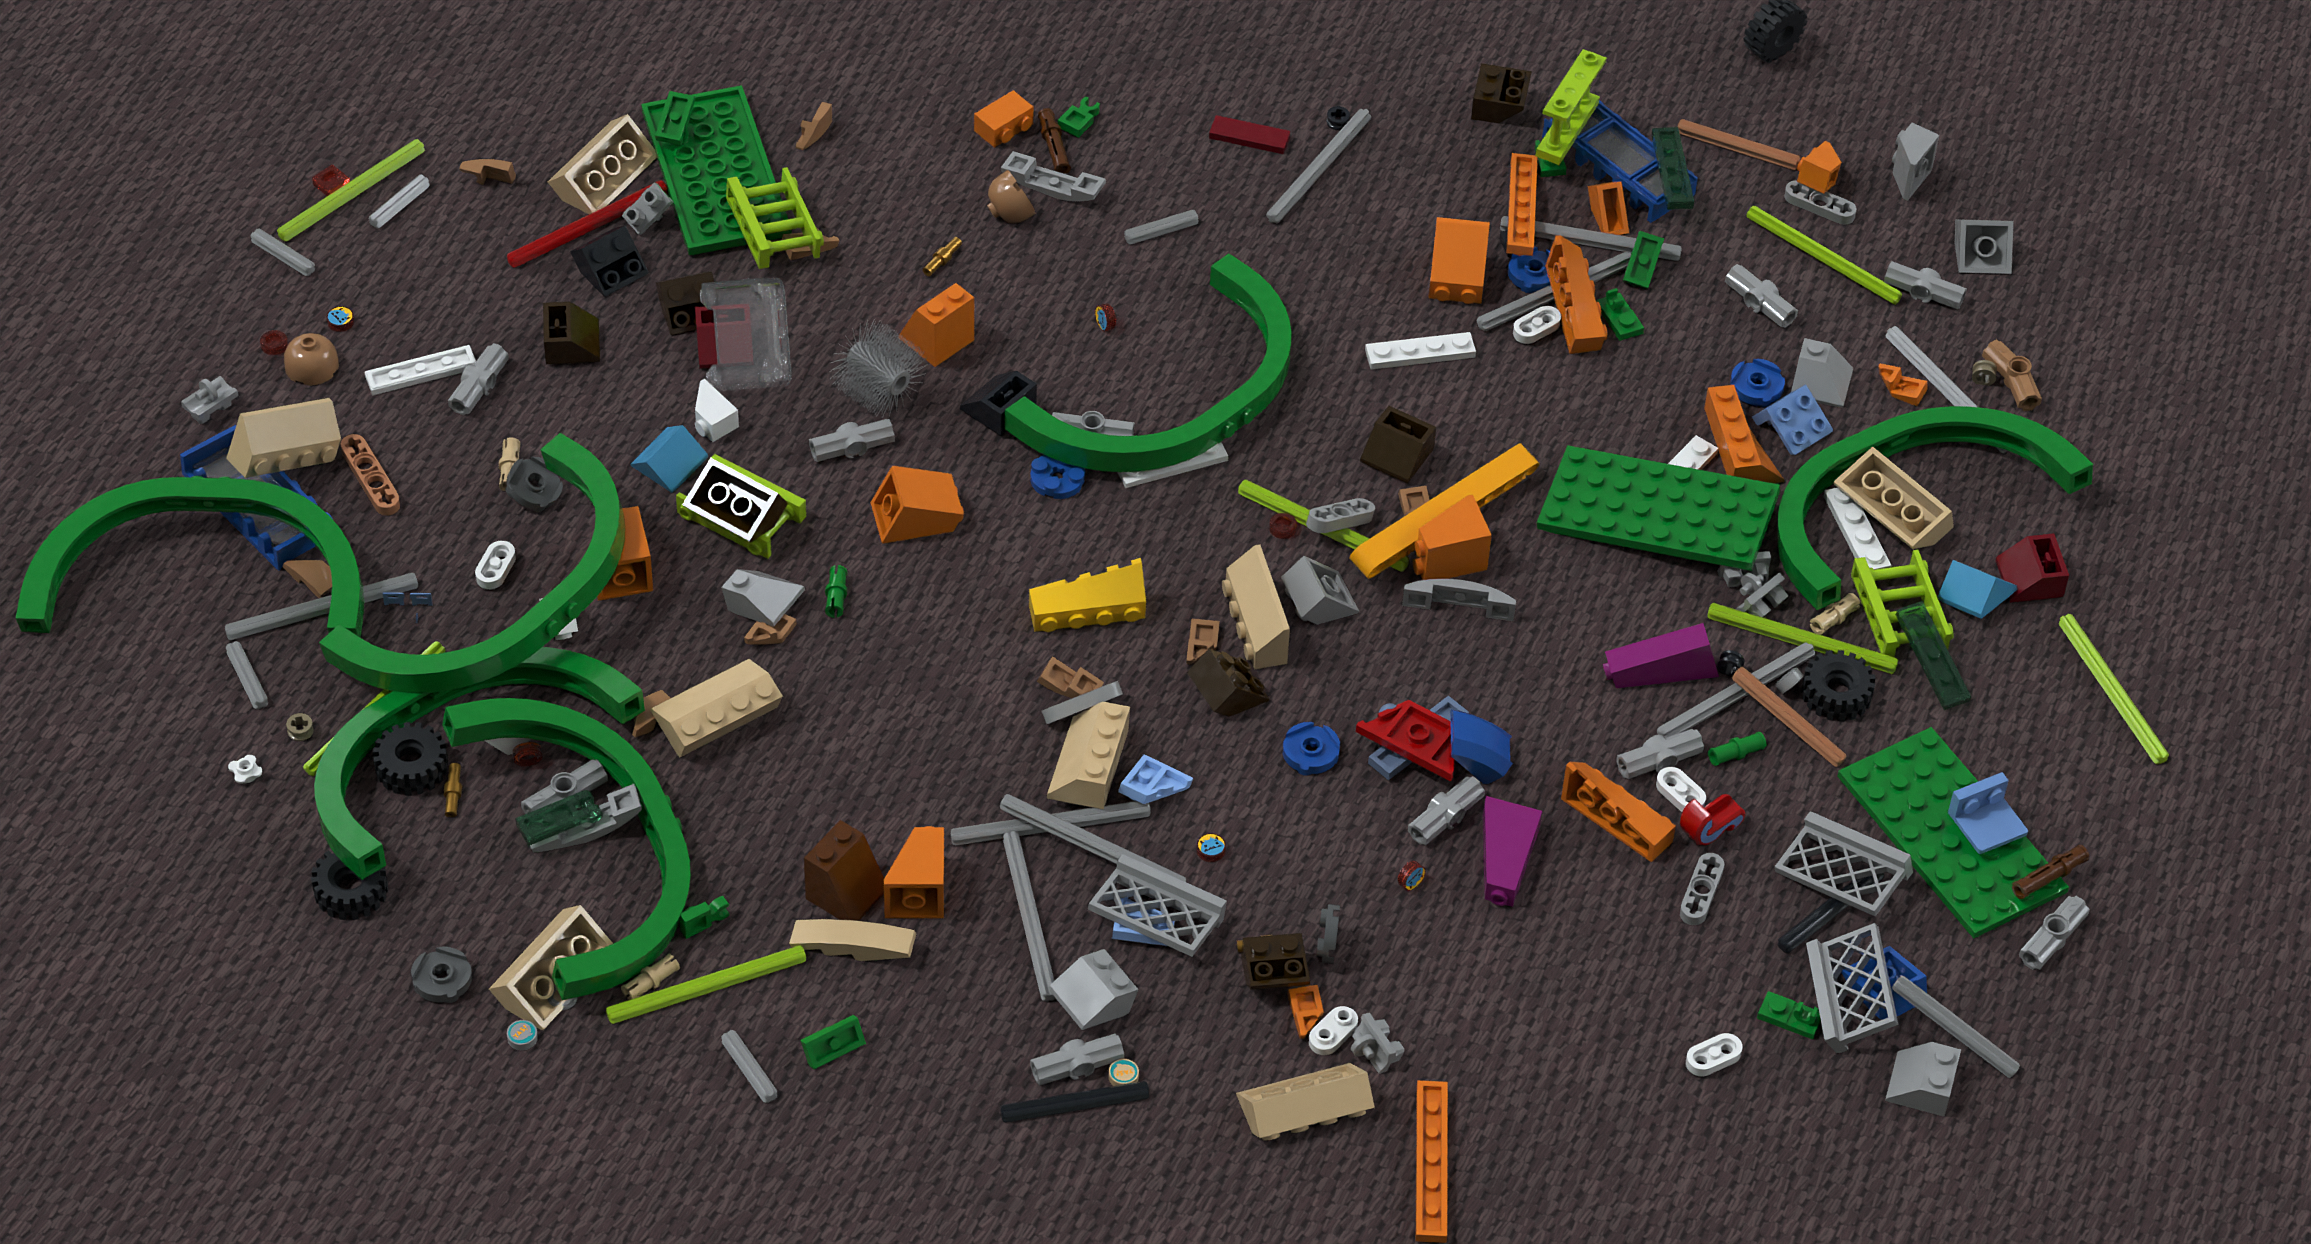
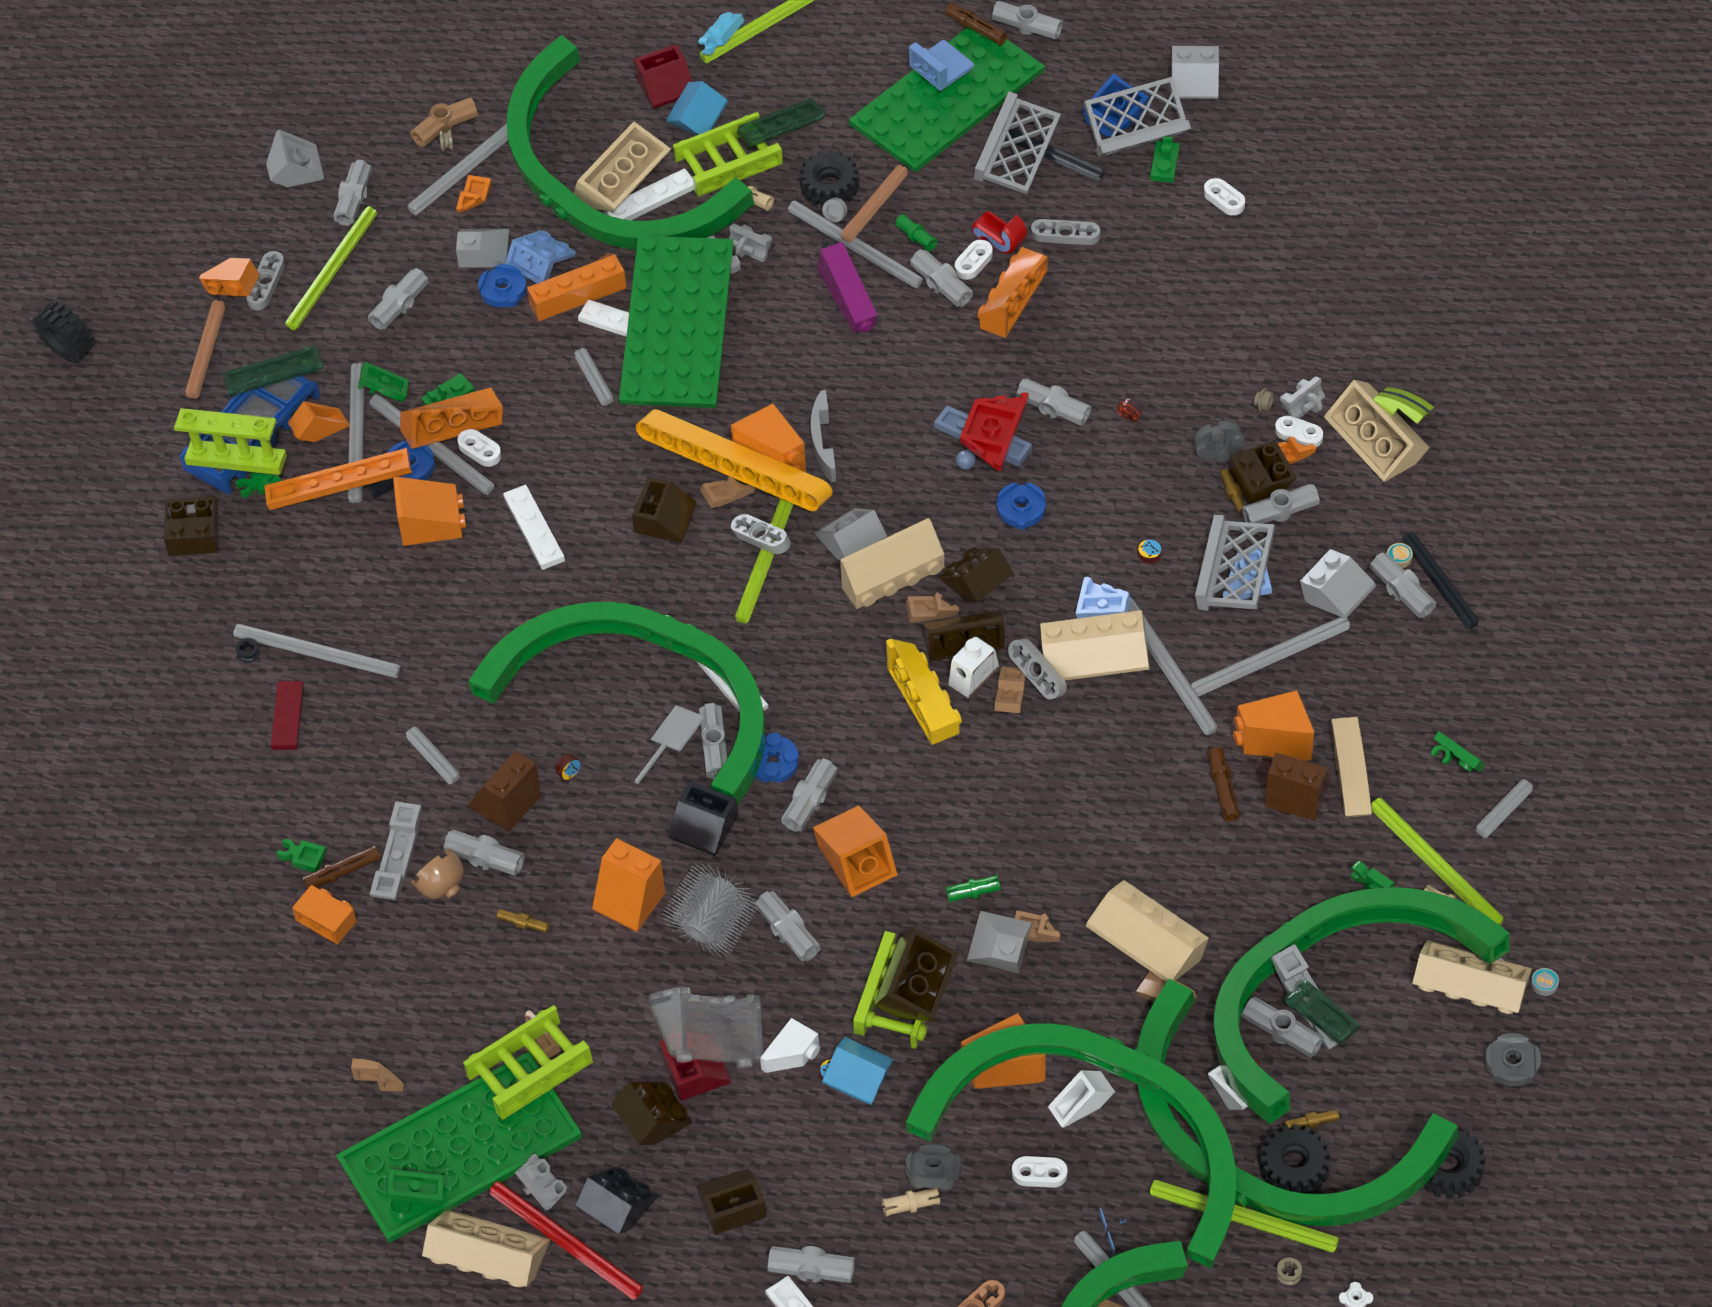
camera: 100 degrees left, 5 degrees up
(878, 822) = (1221, 774): none -> reddish brown pin
(999, 489) = (809, 795): none -> light grey piece
(1029, 239) = (484, 852): none -> light grey piece
(1073, 833) = (1184, 628): light grey axle -> none
(1083, 258) = (509, 792): none -> reddish brown slope
(1104, 648) = (972, 666): none -> white torso
(1115, 403) = (673, 733): none -> light grey piece
(1150, 649) = (949, 636): none -> dark brown slope
(1227, 976) = (1281, 505): none -> light grey piece
(1283, 526) = (776, 581): clear red tile -> none
(1328, 1127) = (1396, 399): none -> lime slope
(1389, 1004) = (1264, 400): none -> dark tan plate
(1431, 1161) = (1397, 344): orange plate -> none
(1479, 746) = (985, 383): blue slope -> none
(1507, 846) = (1080, 354): magenta slope -> none
(1608, 433) = (593, 376): none -> light grey axle
(1798, 636) = (781, 213): lime axle -> none
(1913, 158) = (210, 213): light grey slope -> none
(1956, 1026) = (1147, 55): light grey axle -> none
(2095, 634) = (721, 31): none -> medium azure plate

